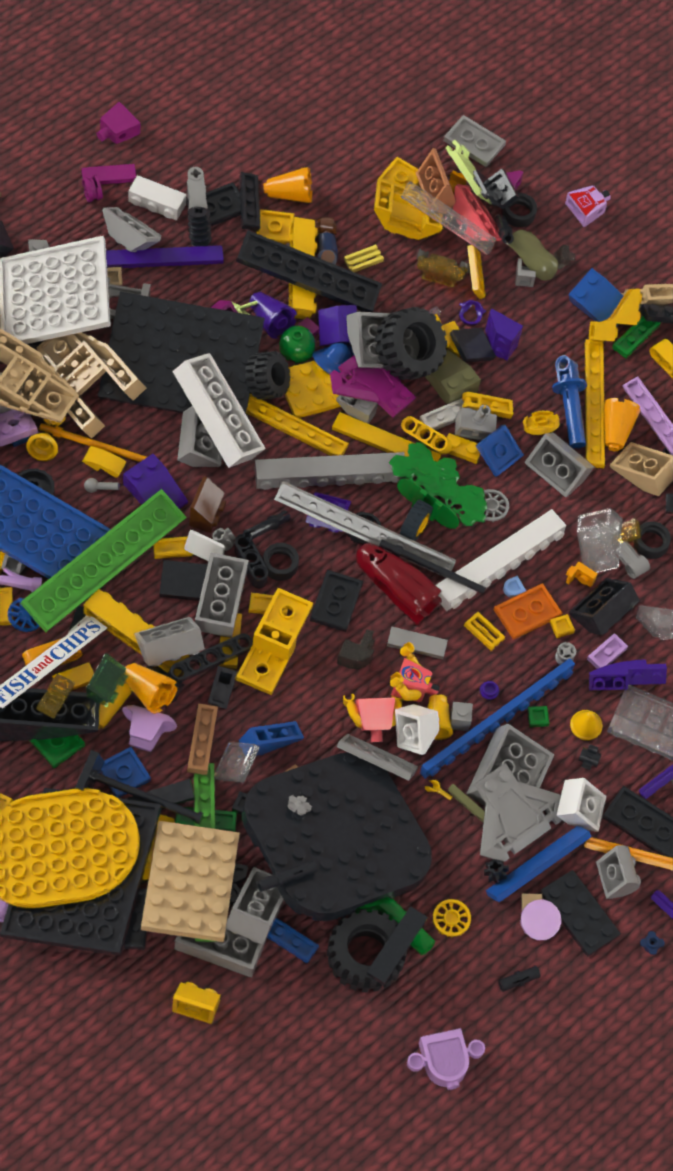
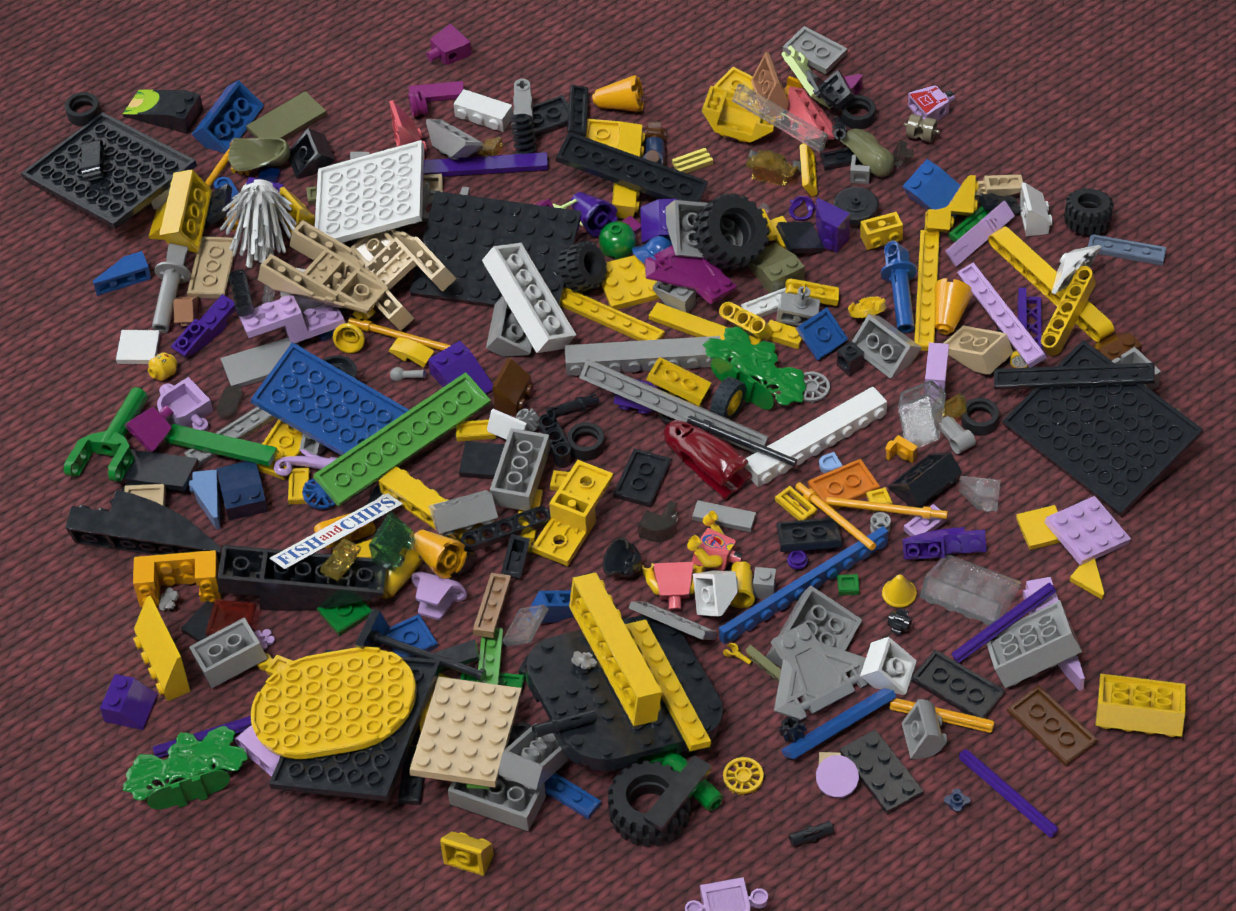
camera: 15 degrees right, 10 degrees down
(82, 220) = (404, 127): none -> coral slope
(168, 237) = (491, 147): none -> clear yellow slope
(324, 690) = (622, 559): none -> black helmet
(330, 796) = (615, 649): none -> yellow brick
(367, 500) = (678, 381): none -> yellow plate
(380, 830) = (673, 693): none -> yellow plate
(499, 664) = (808, 534): none -> black tile
(500, 624) = (812, 497): none -> light orange bar
(502, 259) = (837, 159): none -> black tile
(525, 310) = (859, 202): none -> black wheel
(528, 477) = (850, 358): none -> black brick
(550, 341) = (881, 230): none -> yellow brick
(581, 230) = (922, 128): none -> dark tan wheel
(608, 644) = (925, 512): none -> light orange bar
(611, 490) = (937, 364): none -> lavender brick
(642, 345) = (979, 233): none -> lavender piece

